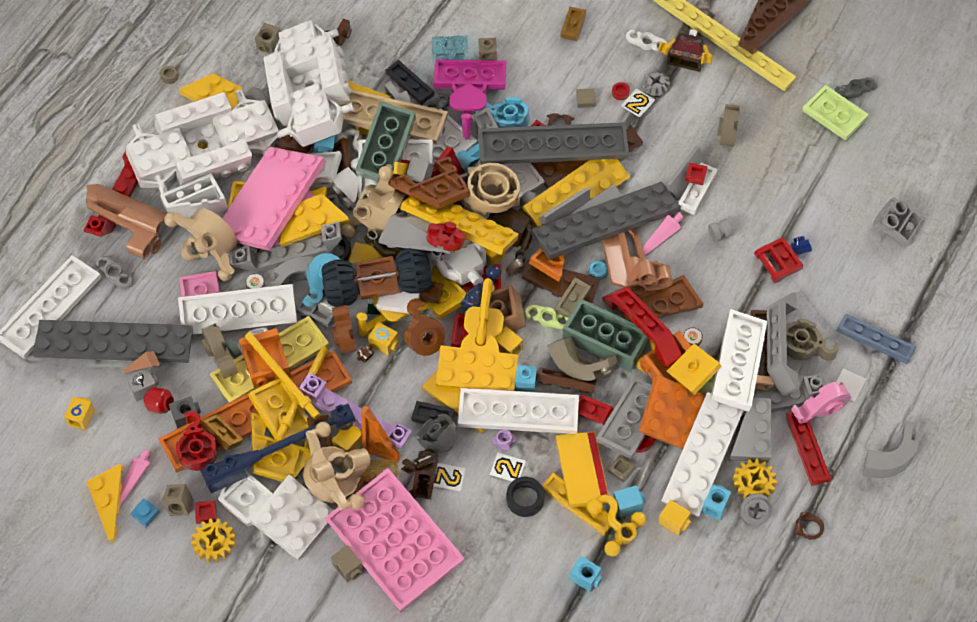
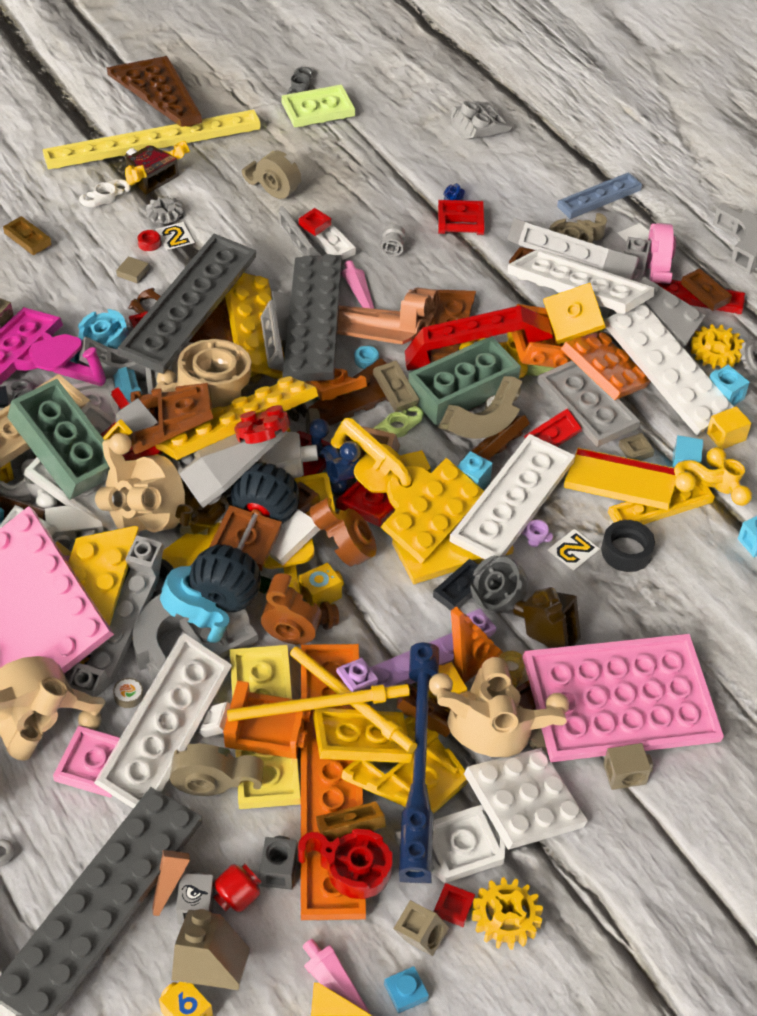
camera: 65 degrees left, 10 degrees down
(110, 405) = (209, 952): none -> dark tan slope
(807, 449) = (706, 289): none -> reddish brown plate

